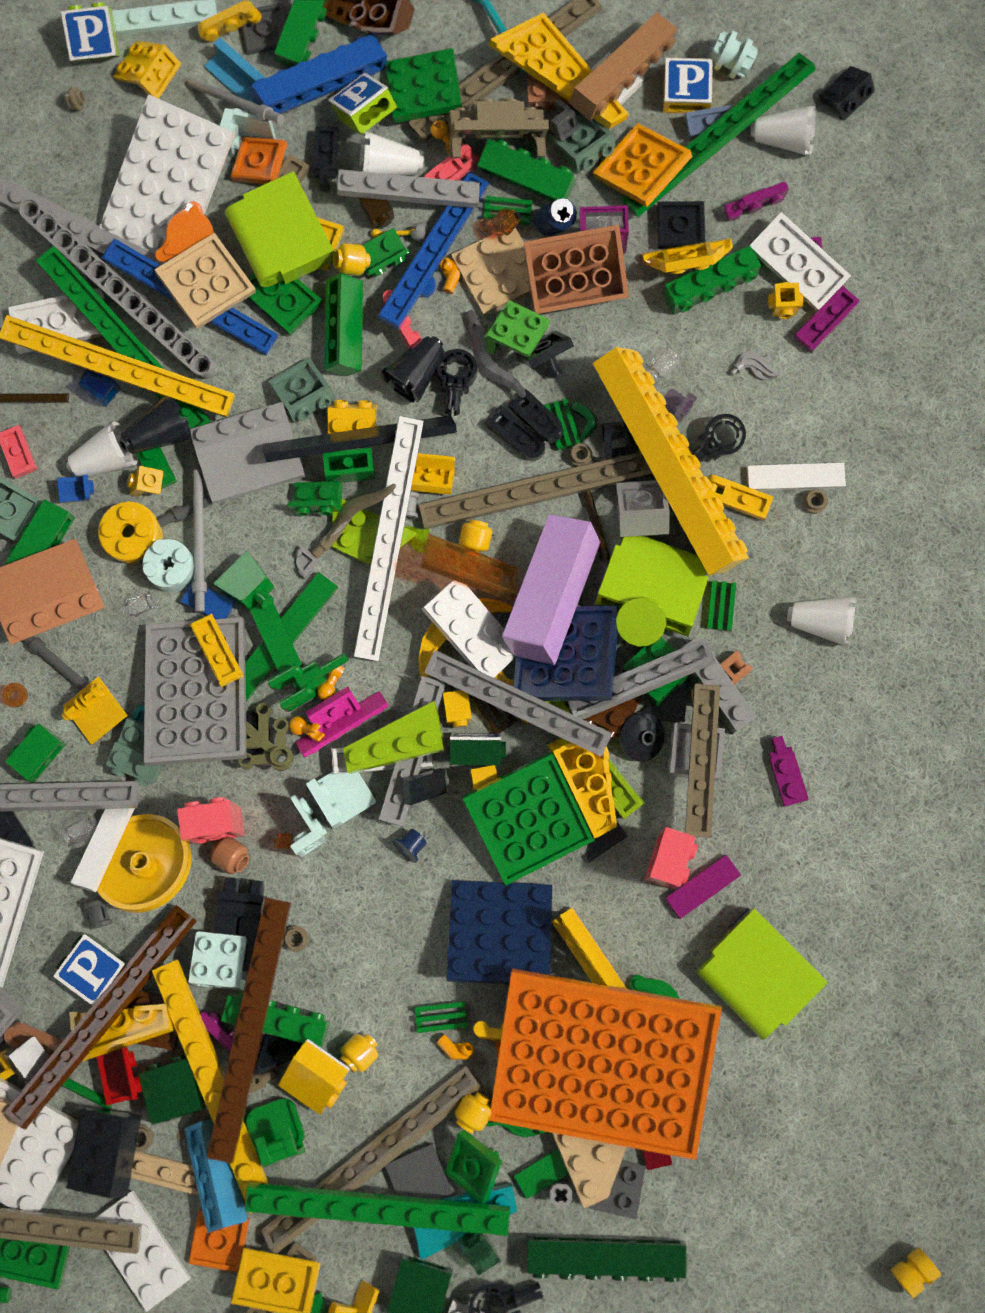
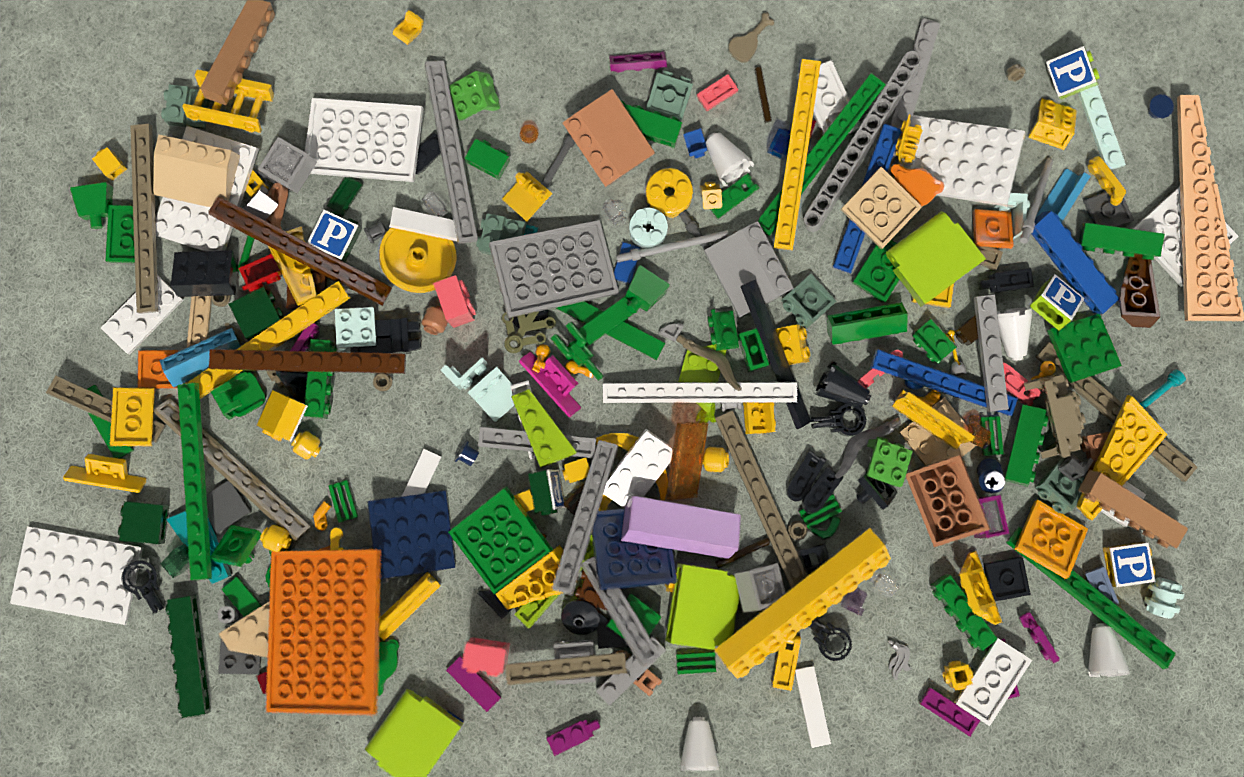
camera: 70 degrees right, 5 degrees up
(40, 948) = (344, 195): none -> dark green tile
(127, 231) = (906, 146): none -> yellow hinge
(156, 428) = (752, 195): black cone -> none
(216, 650) = (587, 278): yellow tile -> none
(284, 840) = (453, 358): clear orange plate -> none
(351, 259) = (921, 319): yellow head -> none
(424, 786) = (511, 457): black tile -> none
(424, 907) = (422, 473): none -> white tile
(475, 269) = (931, 420): none -> yellow fence
(641, 621) = (667, 602): lime tile -> none
(818, 494) = (801, 725): dark tan plate -> none
(848, 91) = (1152, 699): black bracket -> none

